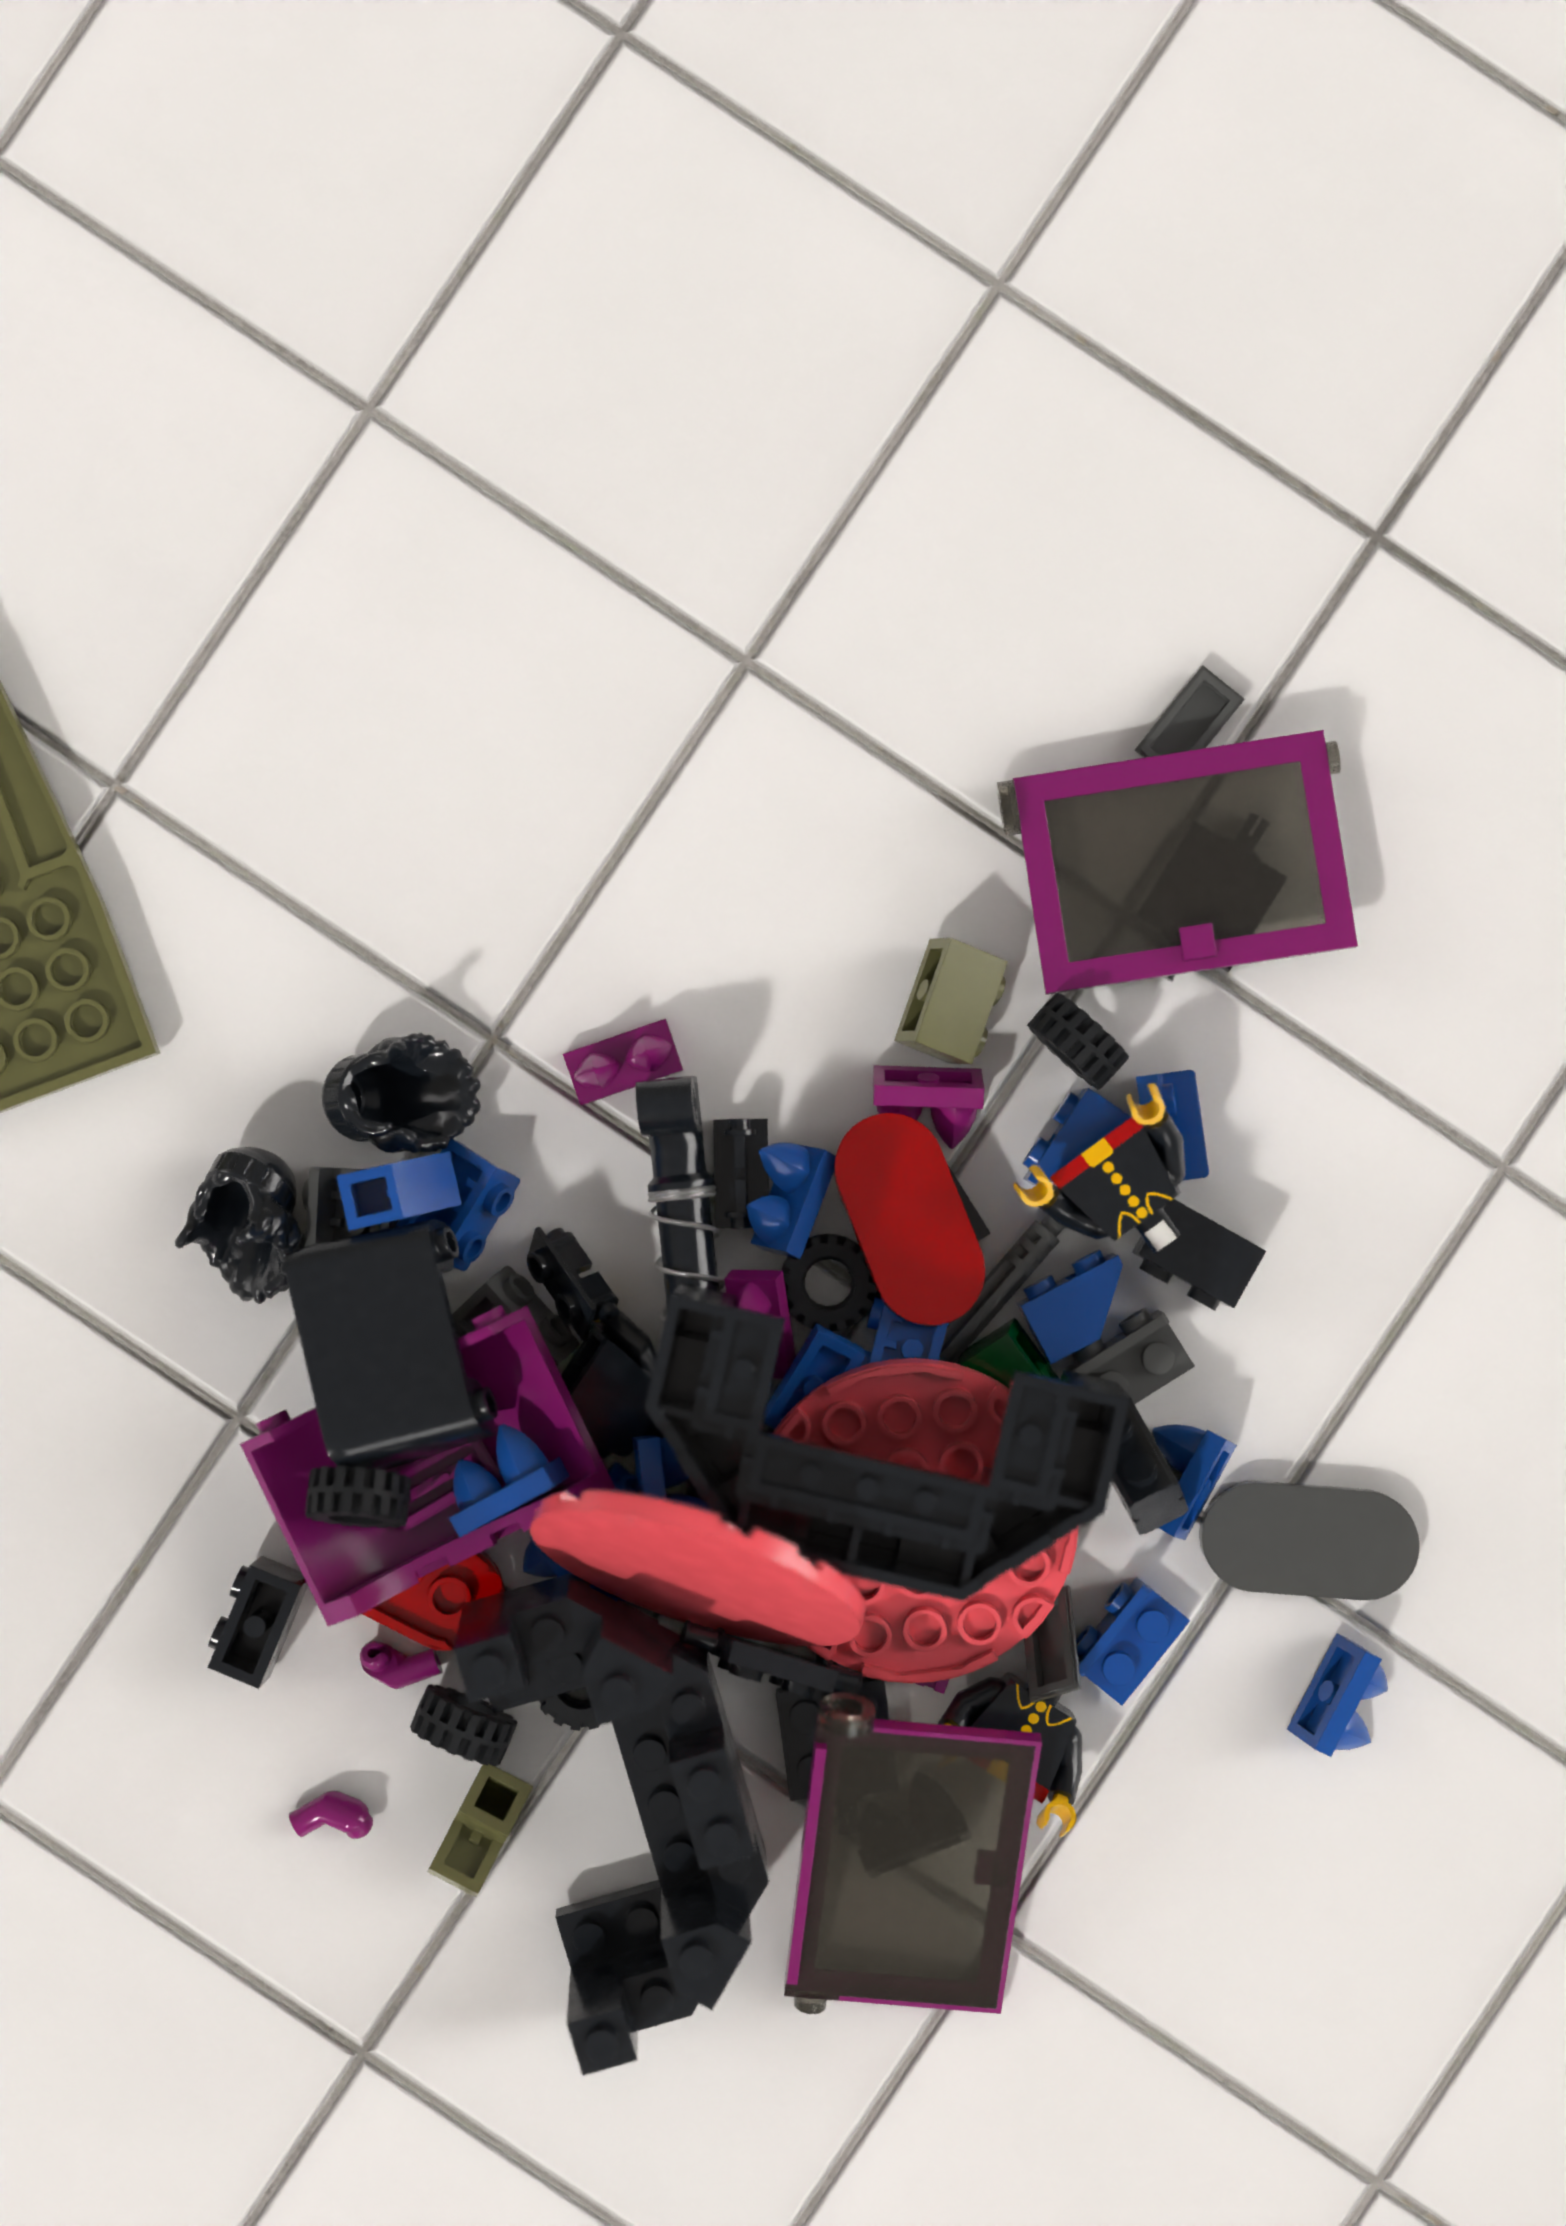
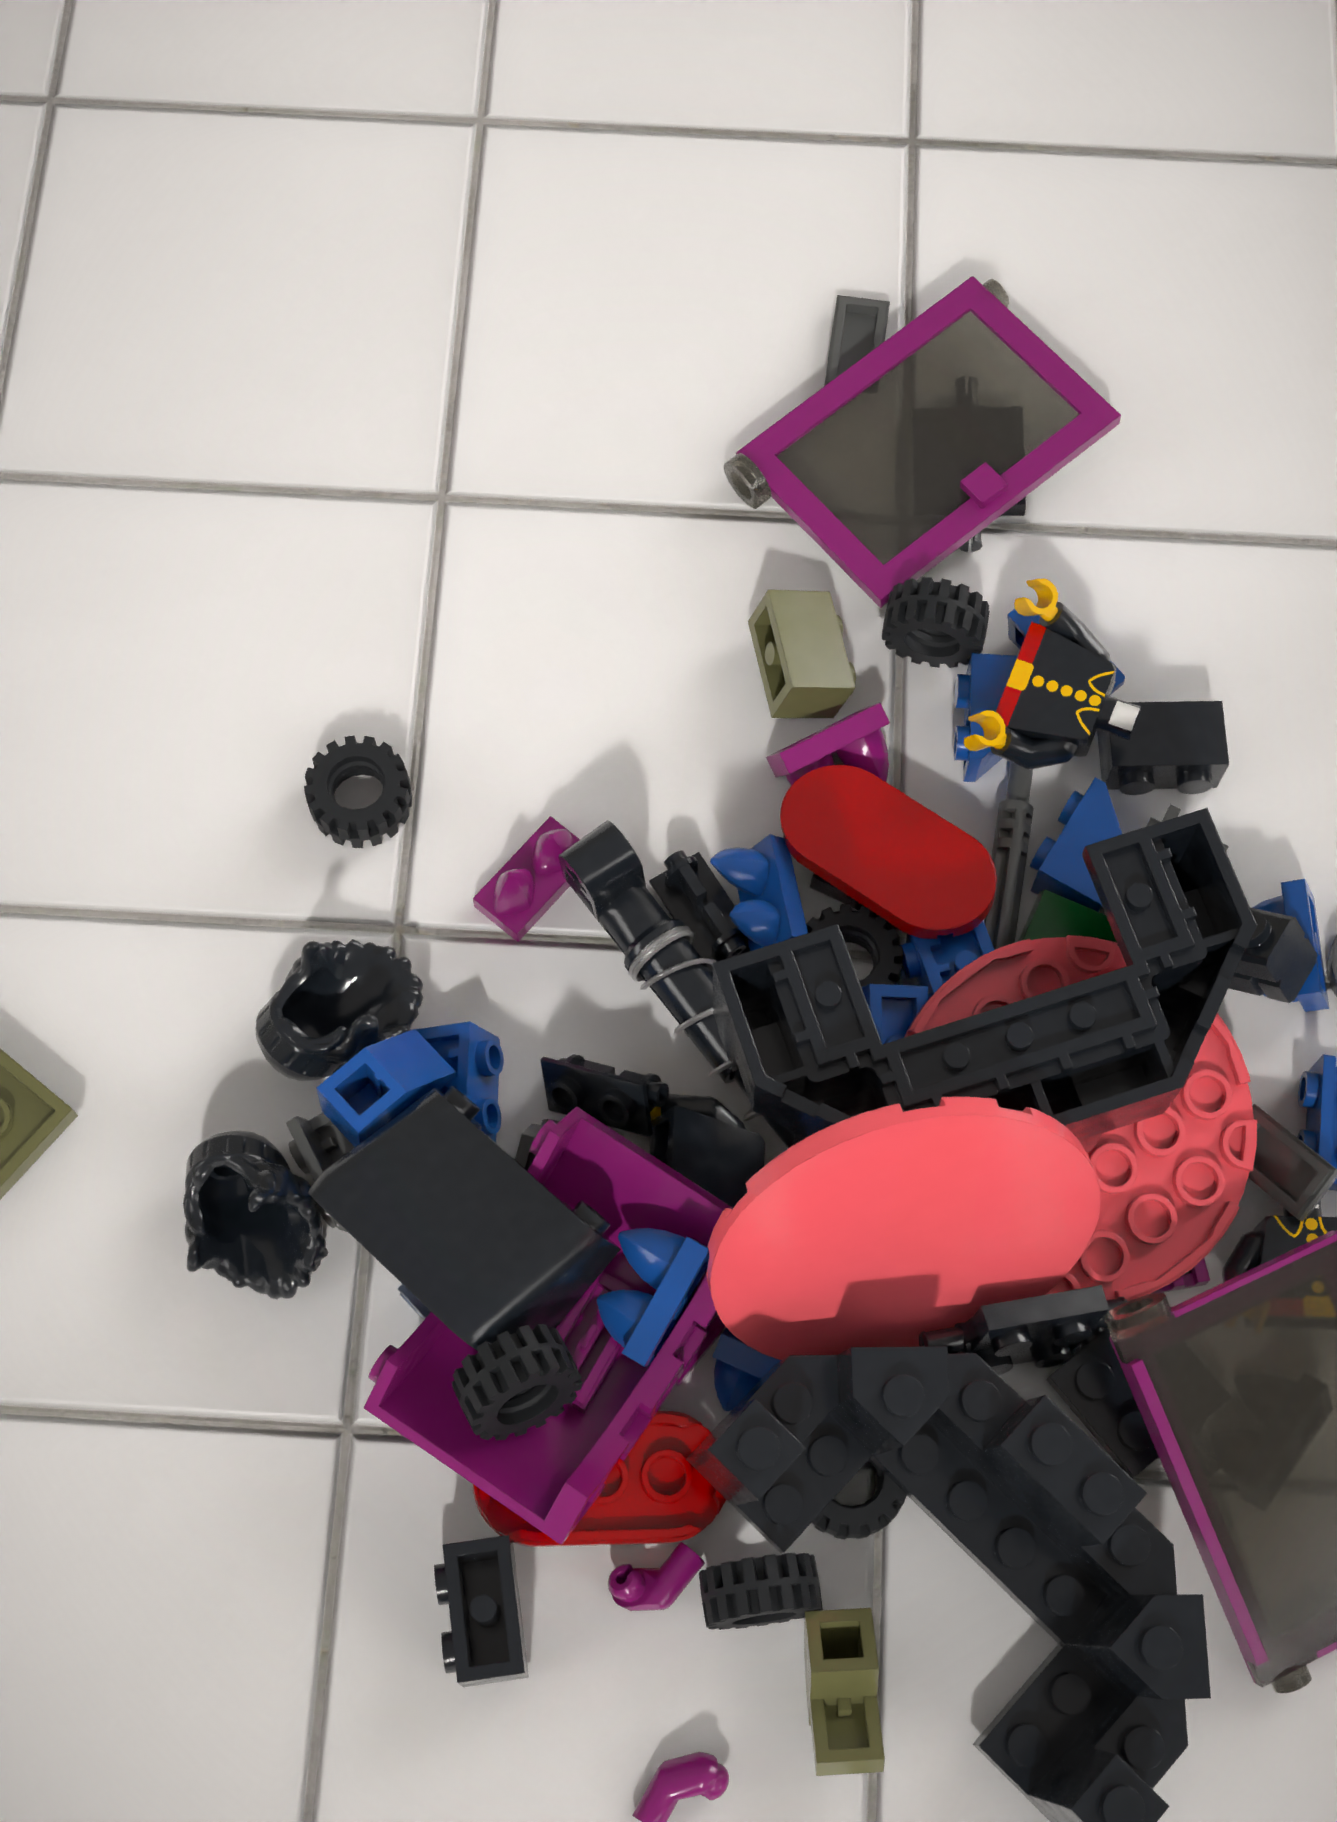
camera: 30 degrees left, 20 degrees down
(522, 871) = (350, 761): none -> black tyre

